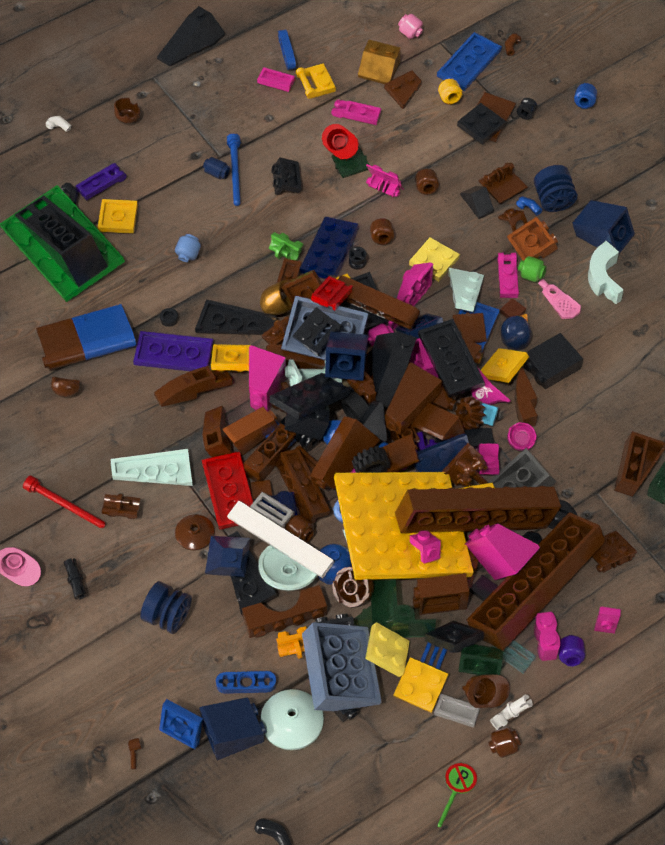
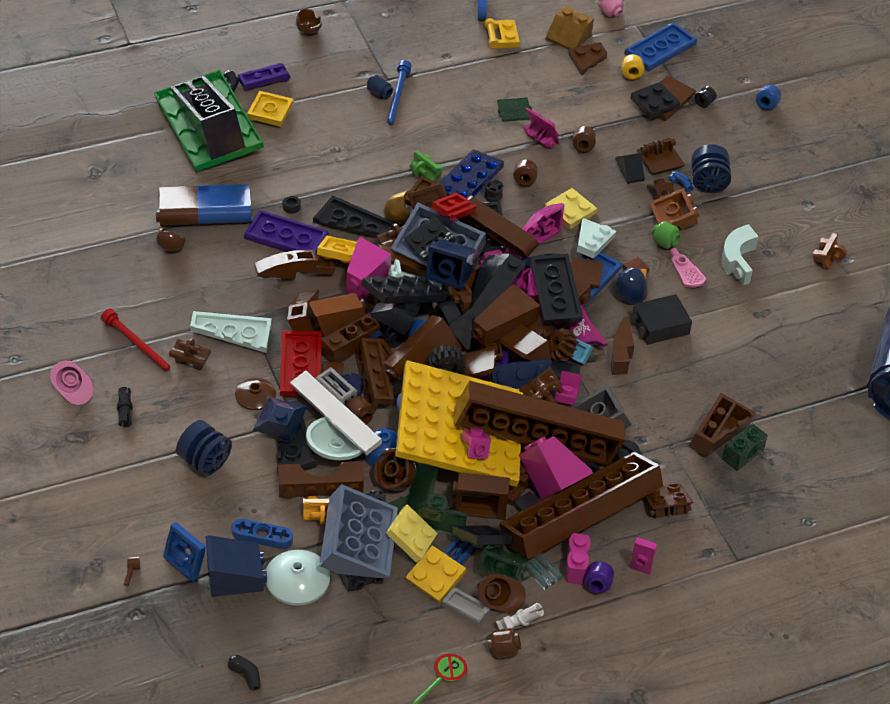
camera: 10 degrees right, 10 degrees down
(57, 121) = (239, 18): white arm -> none
(187, 248) = (329, 148): medium blue head -> none
(276, 79) = (463, 24): dark pink plate -> none
(286, 176) = (446, 107): black bracket -> none
(340, 141) = (508, 86): red piece -> none
(356, 111) = (534, 67): dark pink hinge -> none
(504, 364) = (611, 311): yellow plate -> none
(508, 275) = (640, 237): dark pink plate -> none
(513, 39) = (710, 35): reddish brown arm -> none
(521, 436) = (610, 375): dark pink hair -> none
(603, 223) = (752, 208): dark blue slope -> none

